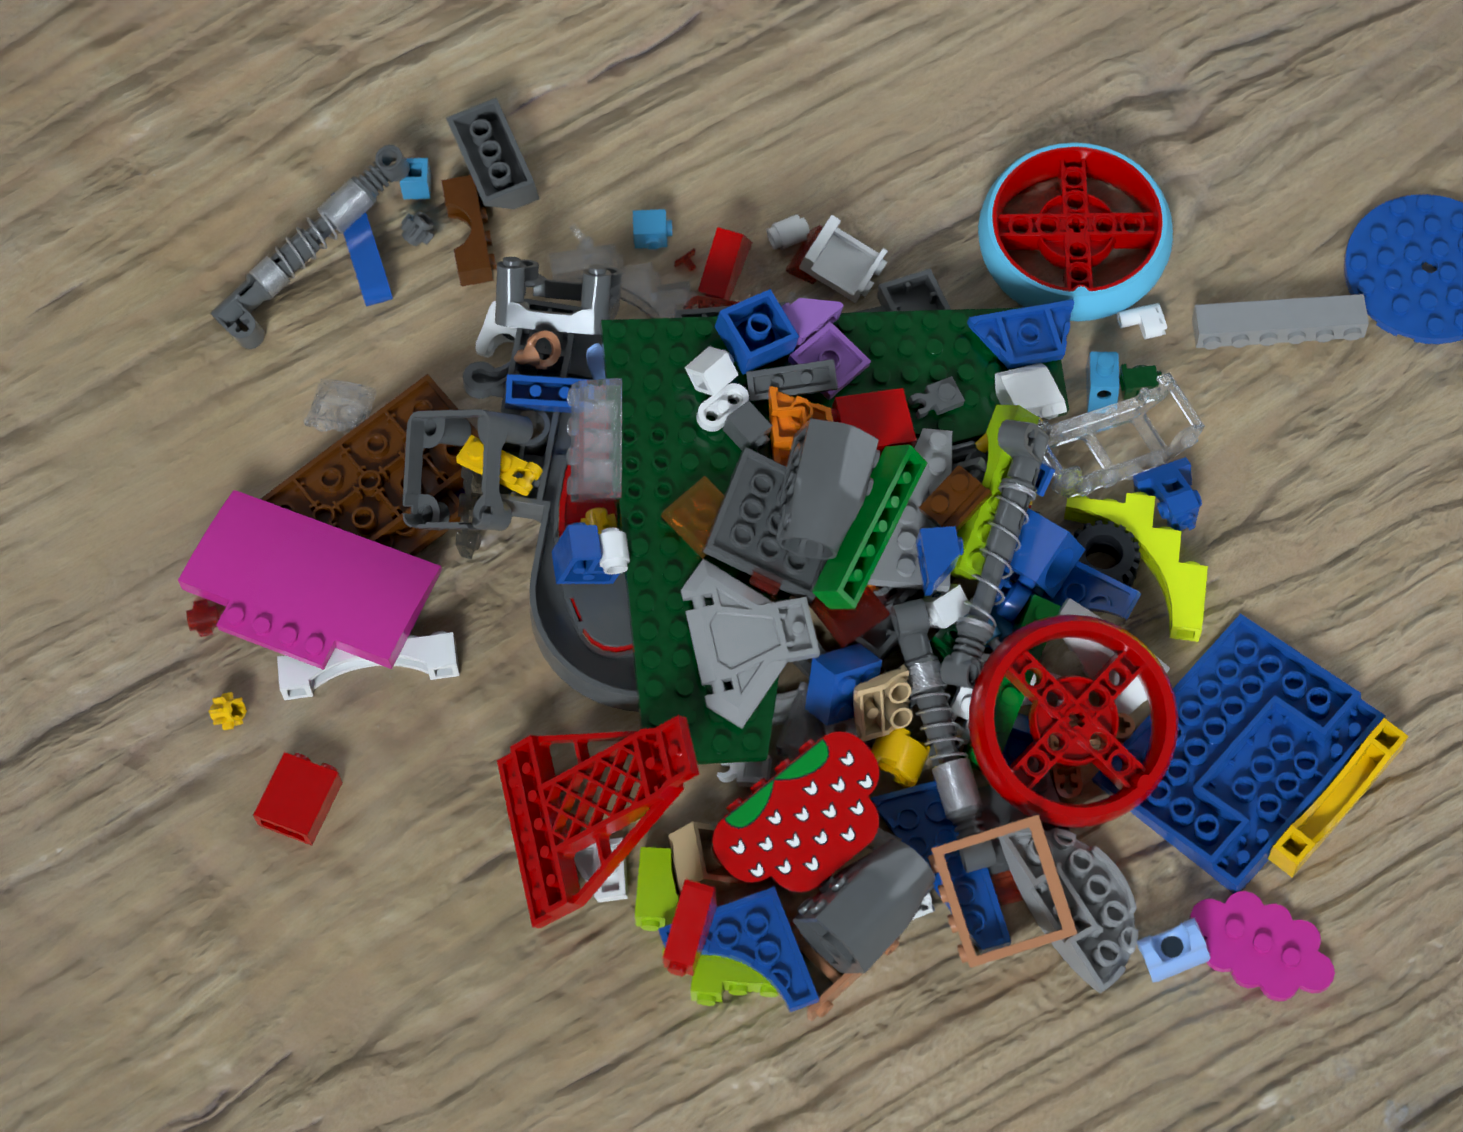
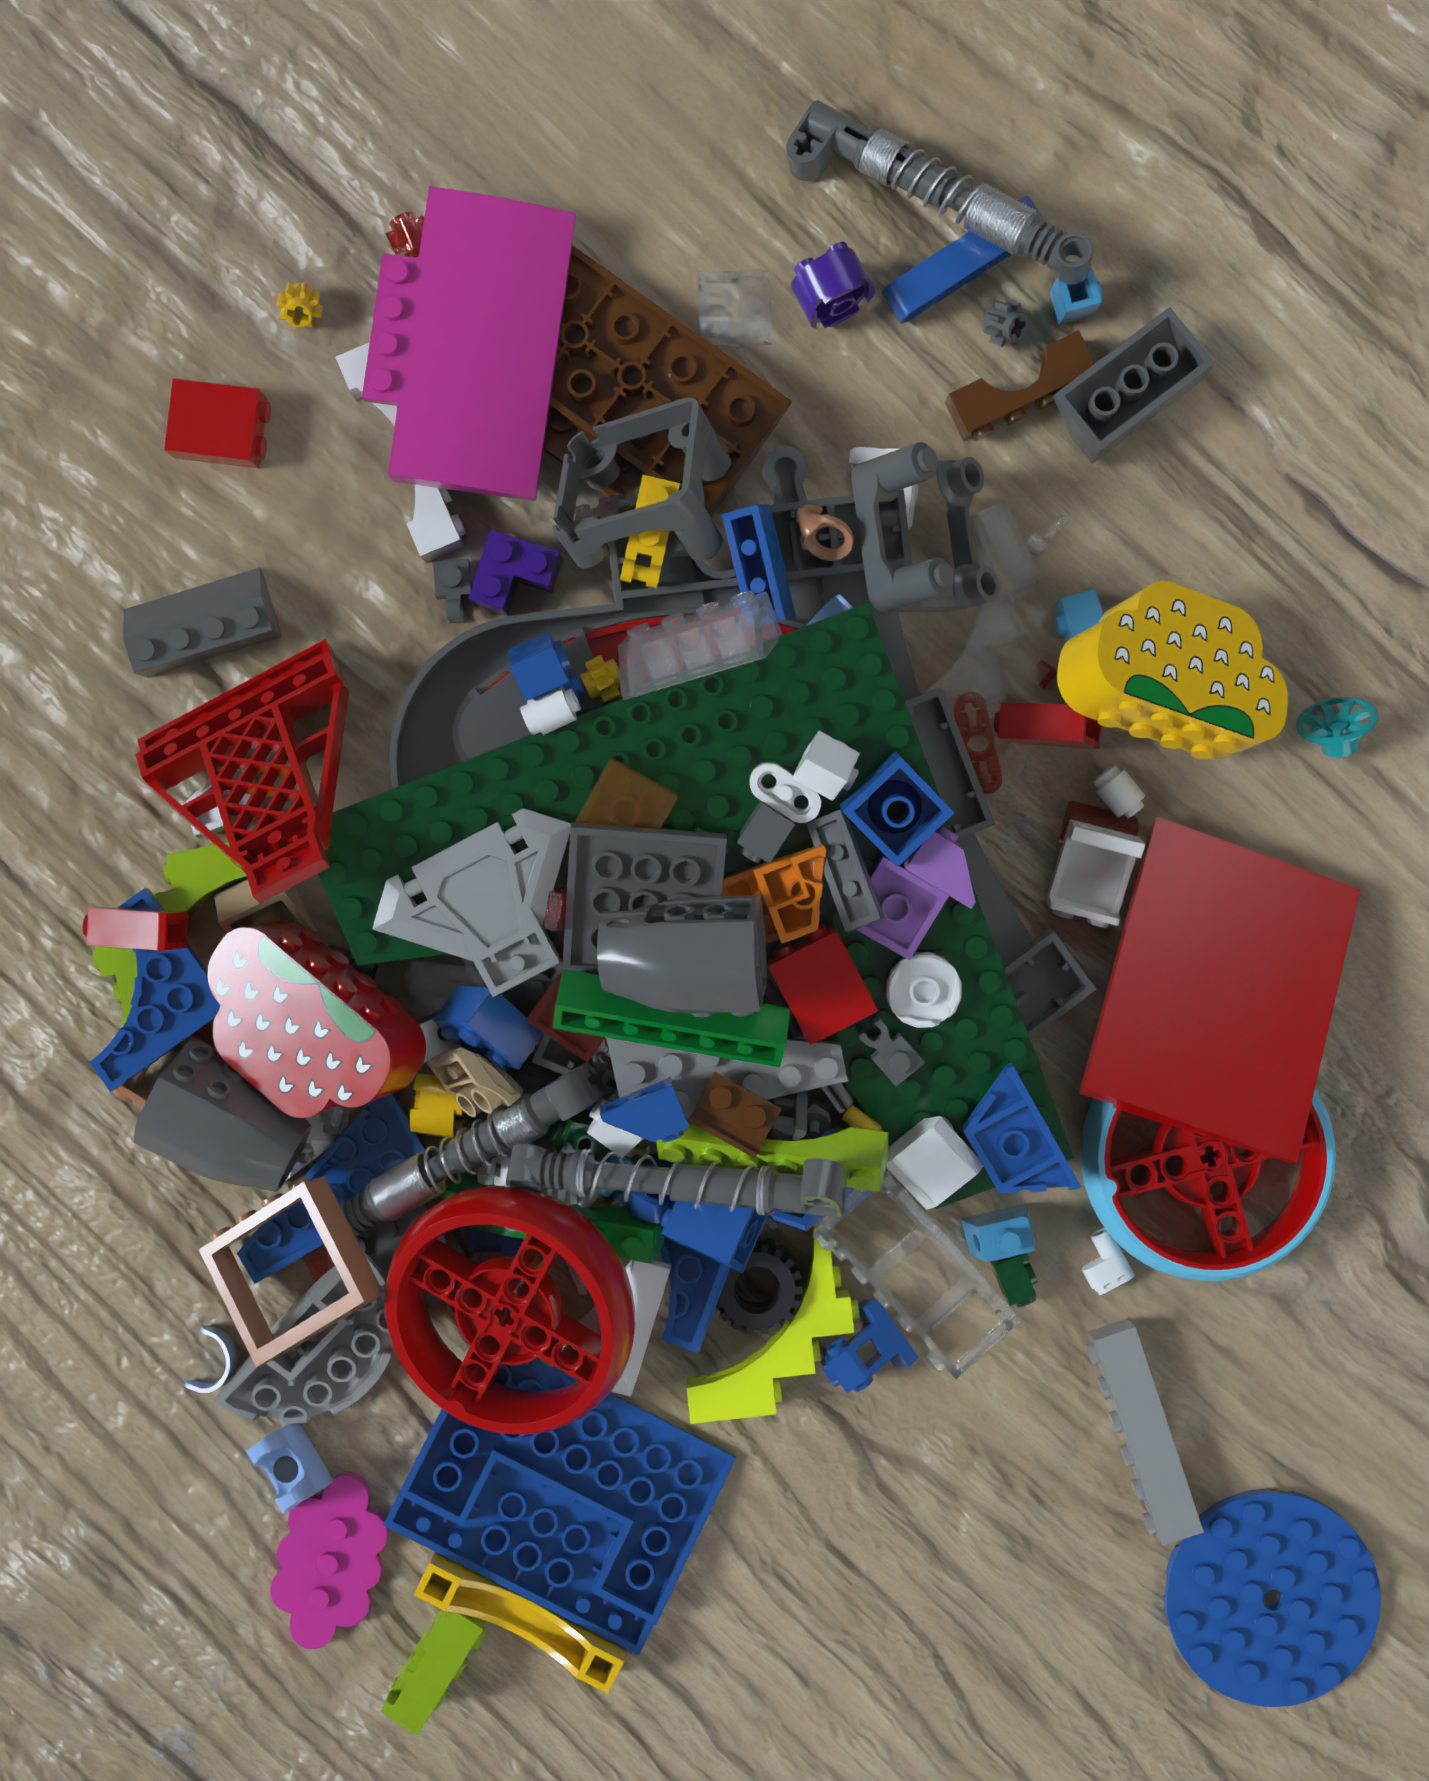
camera: 70 degrees right, 25 degrees up
(351, 332) = (831, 286): none -> dark purple brick
(452, 851) = (199, 623): none -> dark grey slope
(484, 607) = (511, 562): none -> dark purple brick
(484, 655) = (453, 583): none -> dark grey plate
(712, 165) = (1176, 673): none -> yellow brick
(784, 83) = (1337, 731): none -> teal wheel
(896, 363) = (923, 990): none -> white tile
(953, 189) = (1221, 992): none -> red slope
(1074, 980) = (231, 1360): none -> light blue helmet
(1361, 873) = (431, 1667): none -> lime wedge

